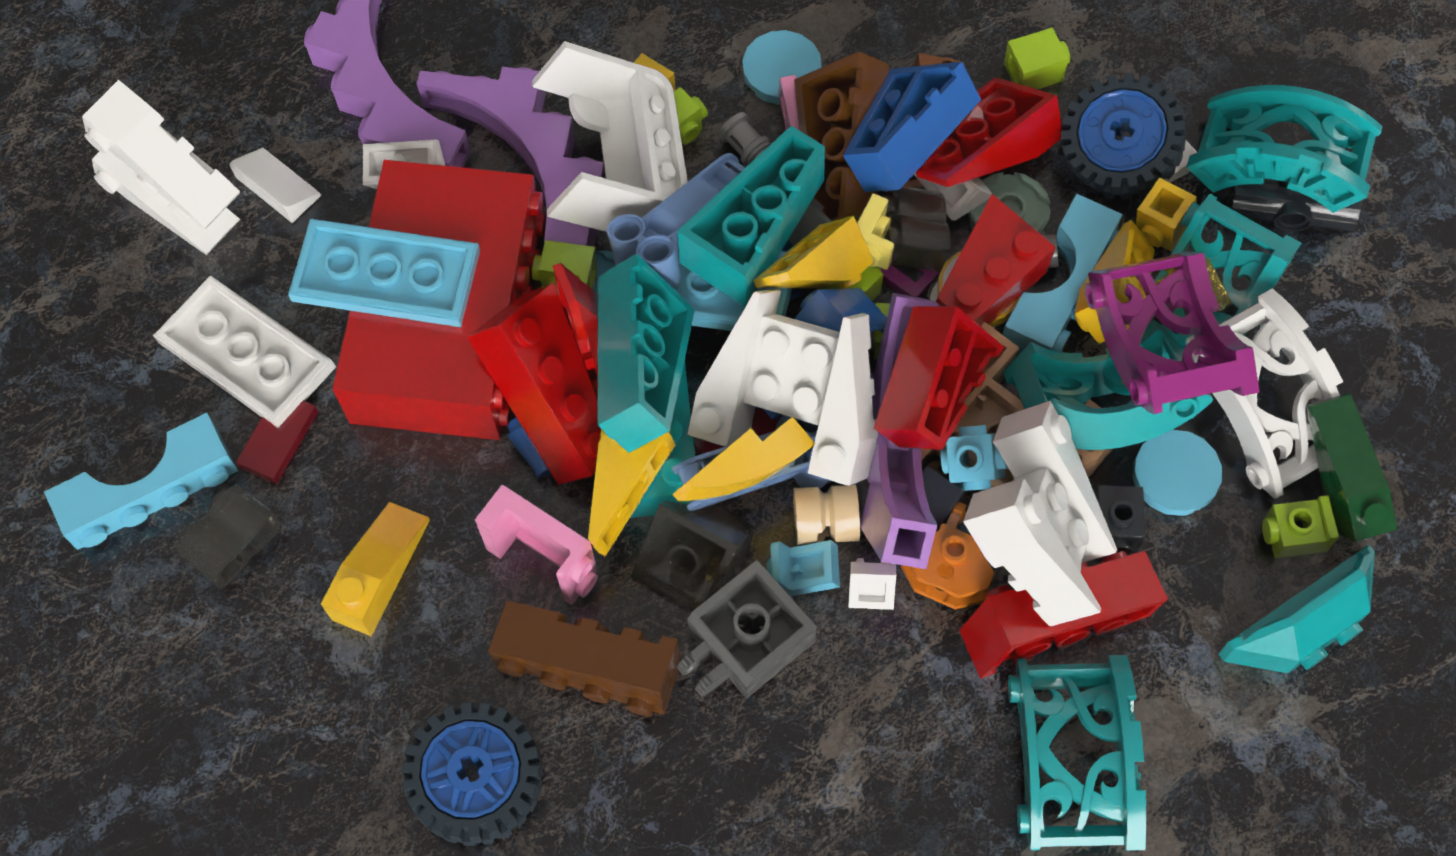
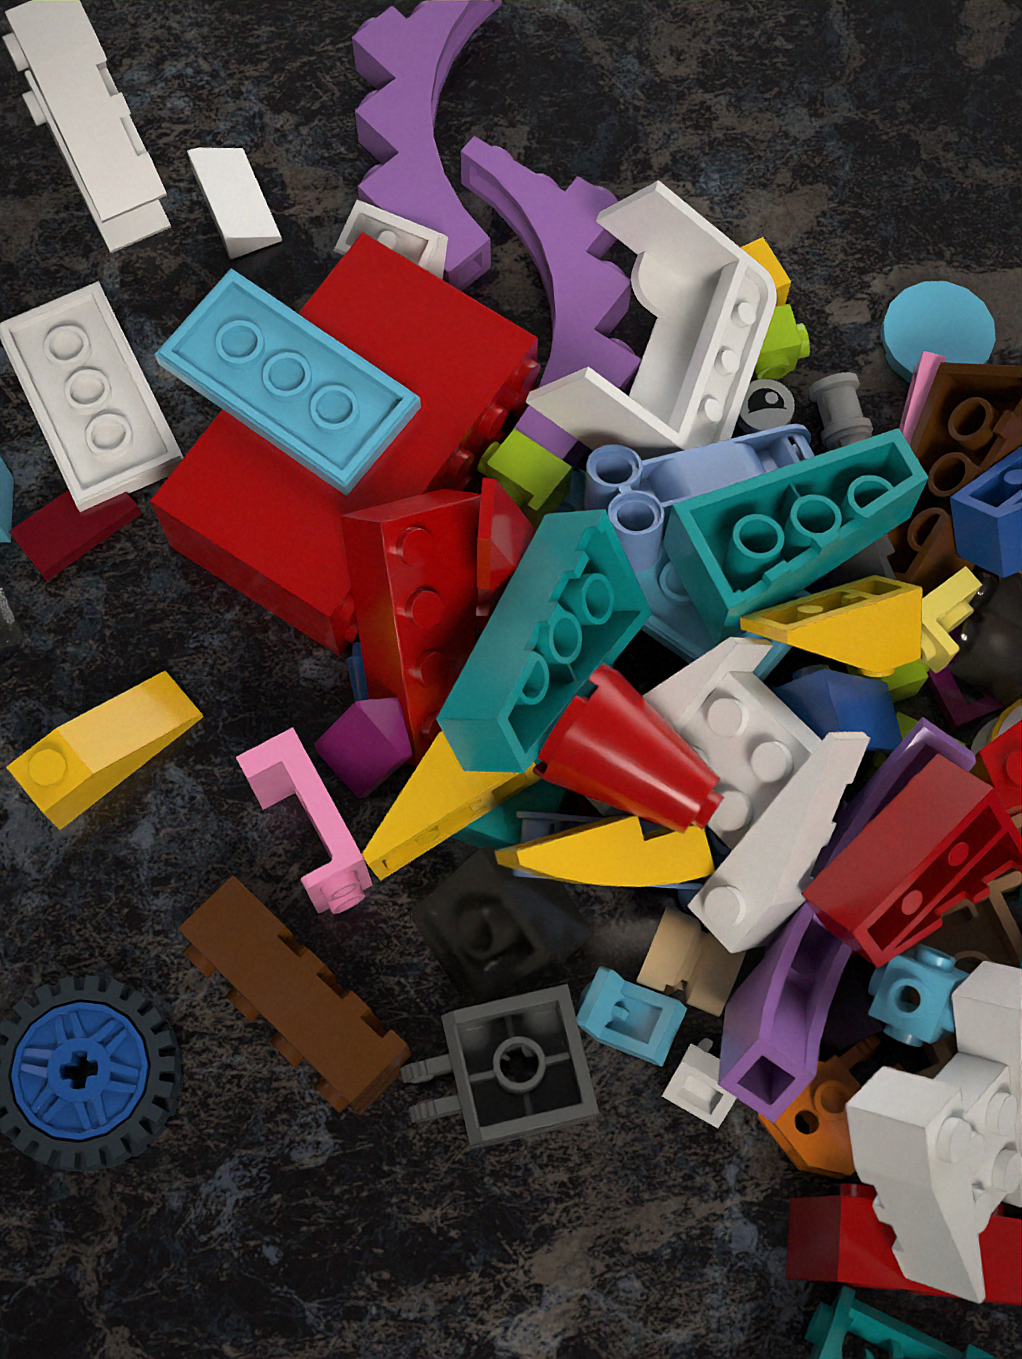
camera: 25 degrees right, 5 degrees up
(552, 478) = (366, 744): none -> magenta slope
(697, 157) = (765, 406): none -> white tile
(728, 395) = (628, 757): none -> red cone

